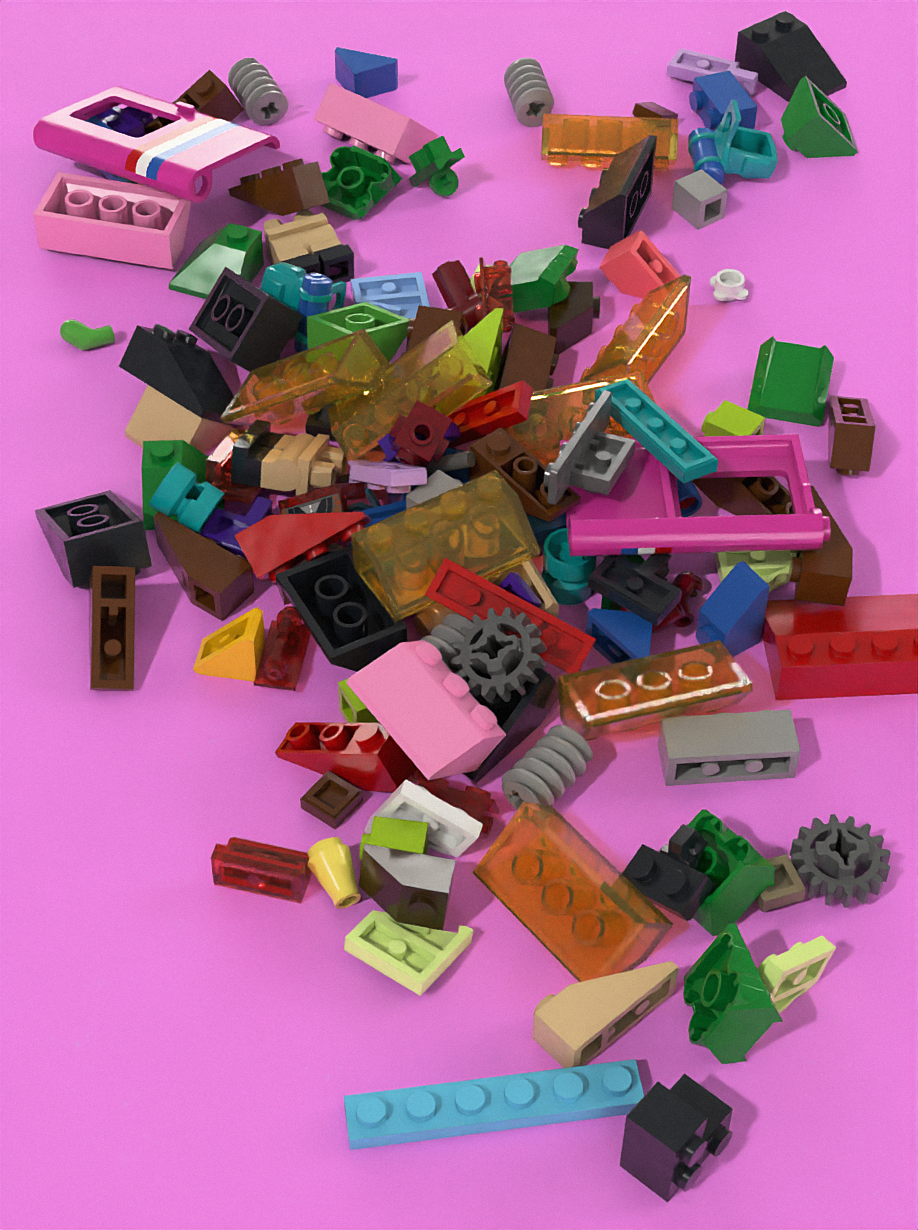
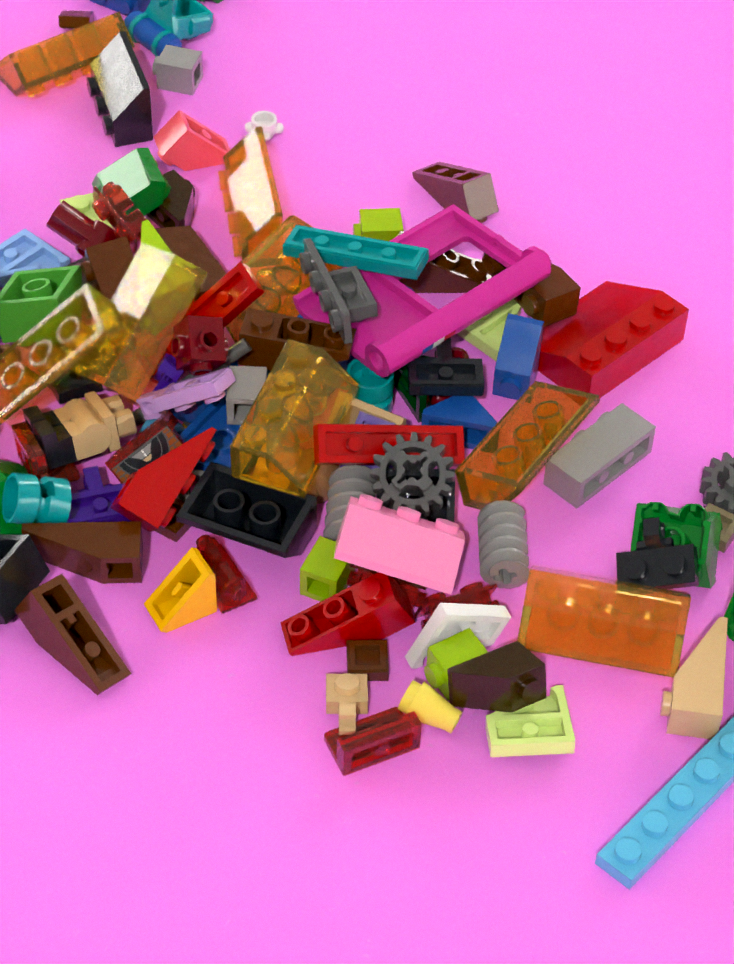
camera: 40 degrees left, 0 degrees up
(276, 817) = (347, 697): none -> tan plate
(791, 382) = (380, 175): green slope -> none

